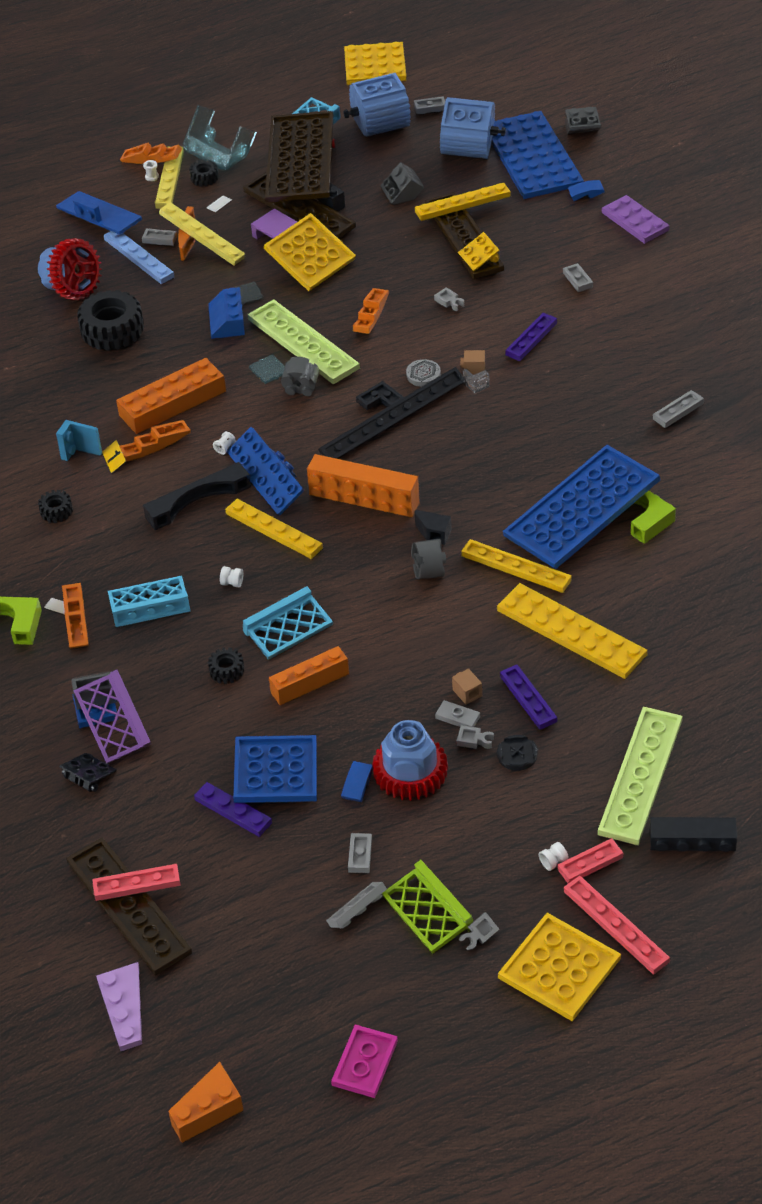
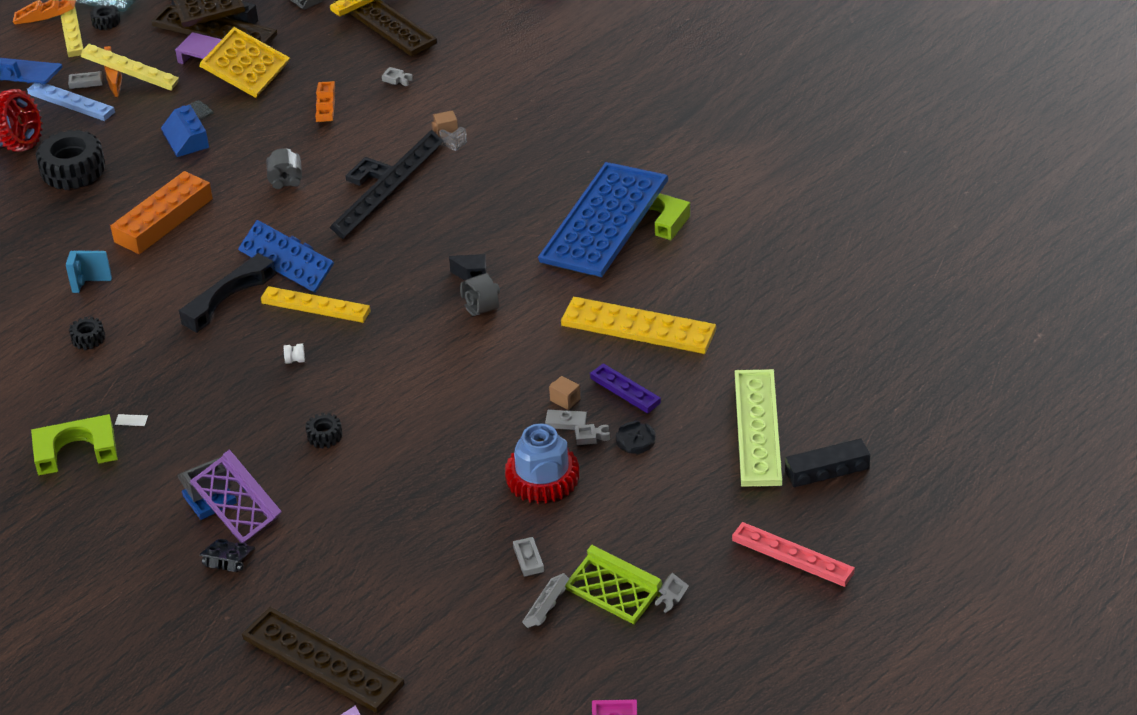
camera: 20 degrees left, 5 degrees down
(75, 615) = (151, 423): orange slope -> none
(113, 456) = (126, 277): yellow sticker -> none
(136, 882) = (324, 634): coral plate -> none
(145, 609) = (217, 402): medium azure fence -> none
(151, 171) = (50, 24): white bush -> none
(159, 438) = (165, 252): orange slope -> none
(219, 203) = (131, 41): white sticker -> none
(224, 443) = (231, 240): white bush -> none
(236, 812) = (386, 551): dark purple plate -> none
(267, 369) = (247, 171): clear light blue piece -> none
(275, 769) = (414, 505): blue plate -> none
(276, 612) = (355, 373): medium azure fence -> none
(303, 341) = (270, 138): yellowish green plate -> none
(309, 675) = (410, 419): orange brick -> none
(356, 781) = (497, 498): blue slope -> none
(363, 485) = (389, 246): orange brick -> none
(422, 372) = (399, 142): light grey tile -> none
(479, 252) = (410, 30): yellow hinge -> none
(516, 566) = (563, 283): yellow plate -> none
(531, 337) = (488, 92): dark purple plate -> none
(553, 856) = (710, 513): white wheel -> none
(559, 966) = (757, 602): yellow plate -> none
(578, 277) = (509, 35): light grey plate -> none
(590, 860) = (745, 508): coral plate -> none
(678, 408) = (652, 123): light grey plate -> none

